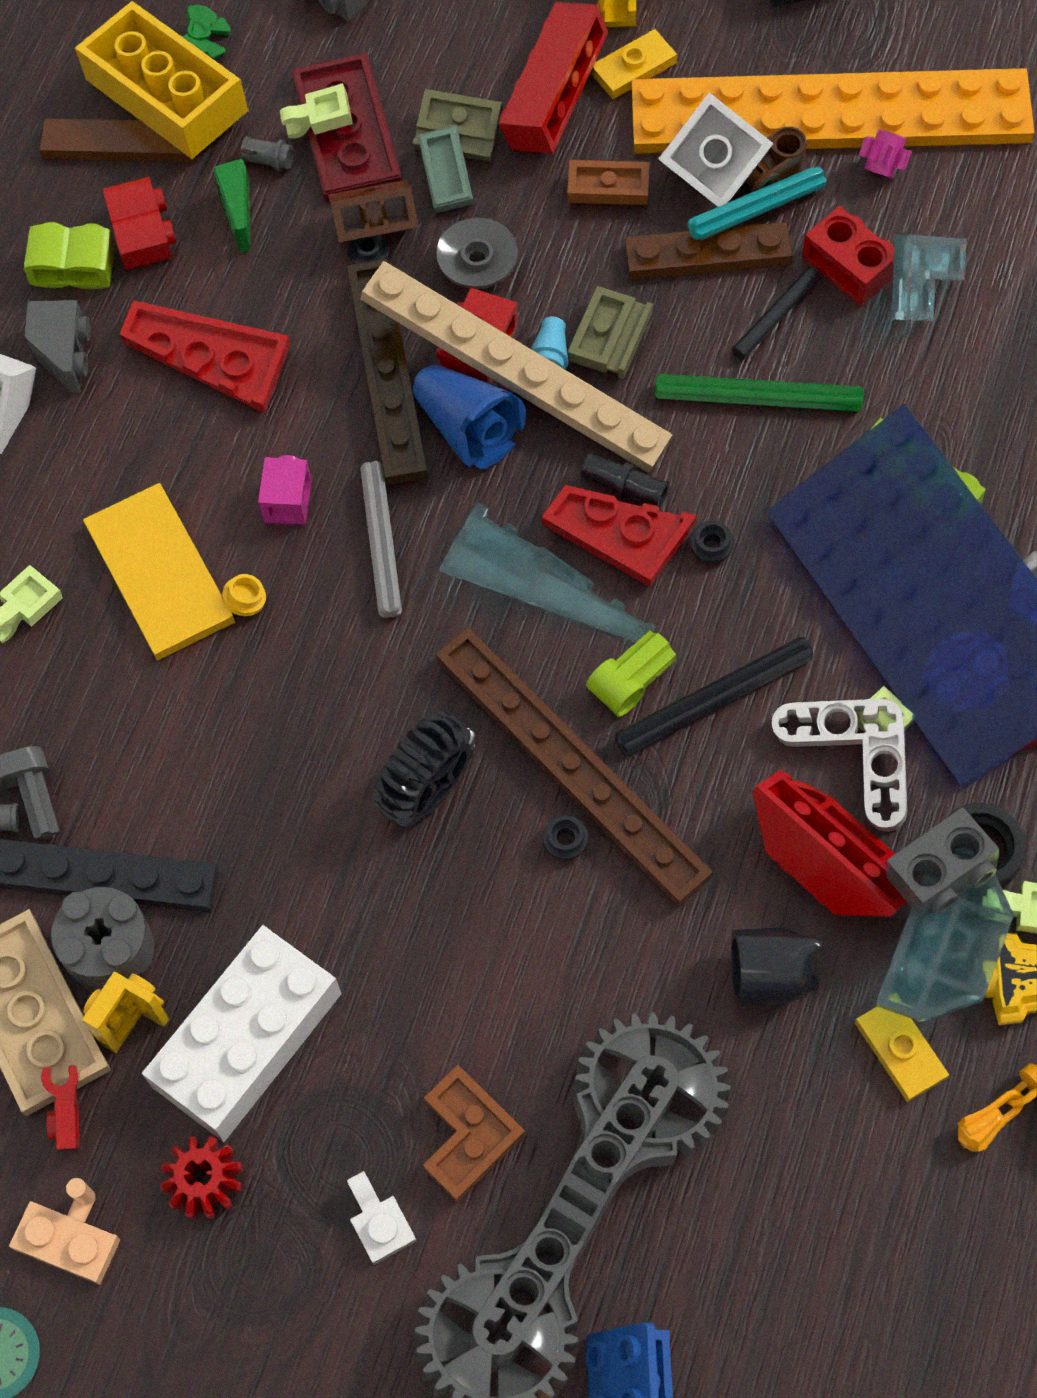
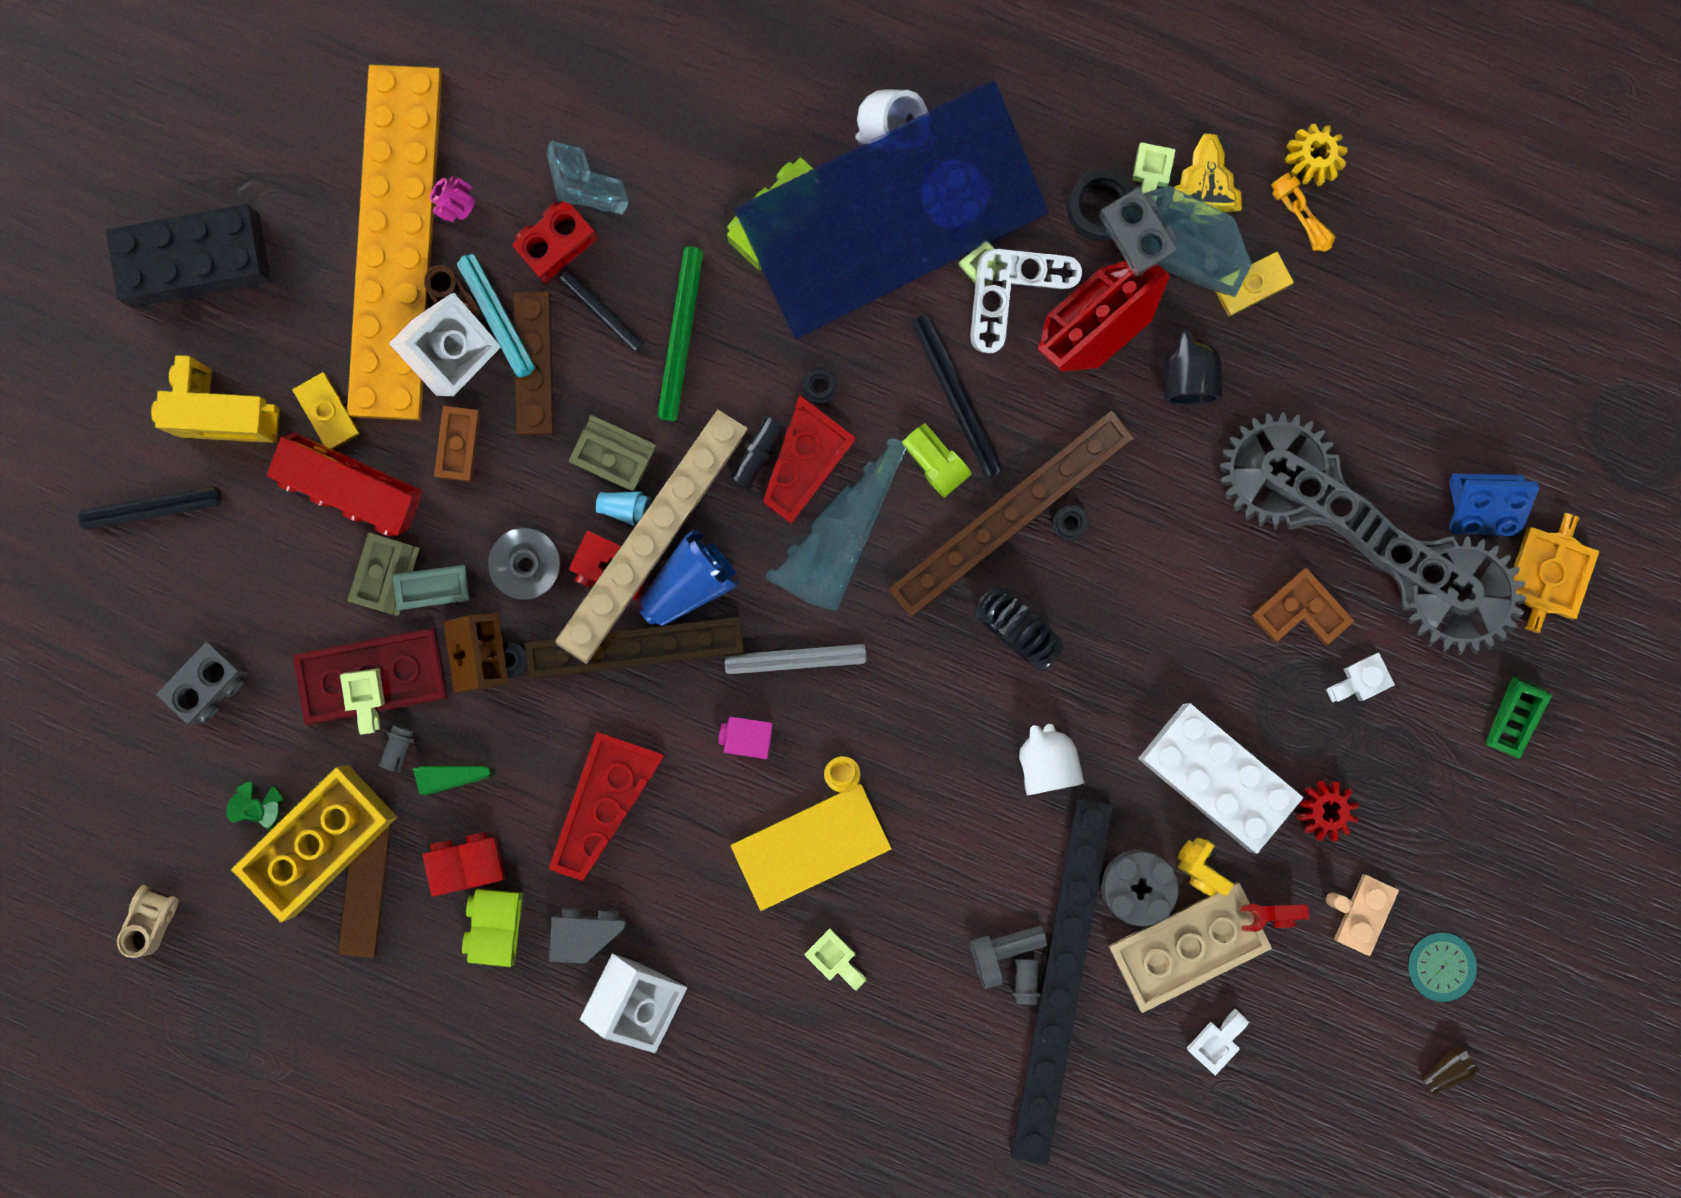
camera: 90 degrees left, 20 degrees up
(261, 820) = (1049, 761): none -> white piece

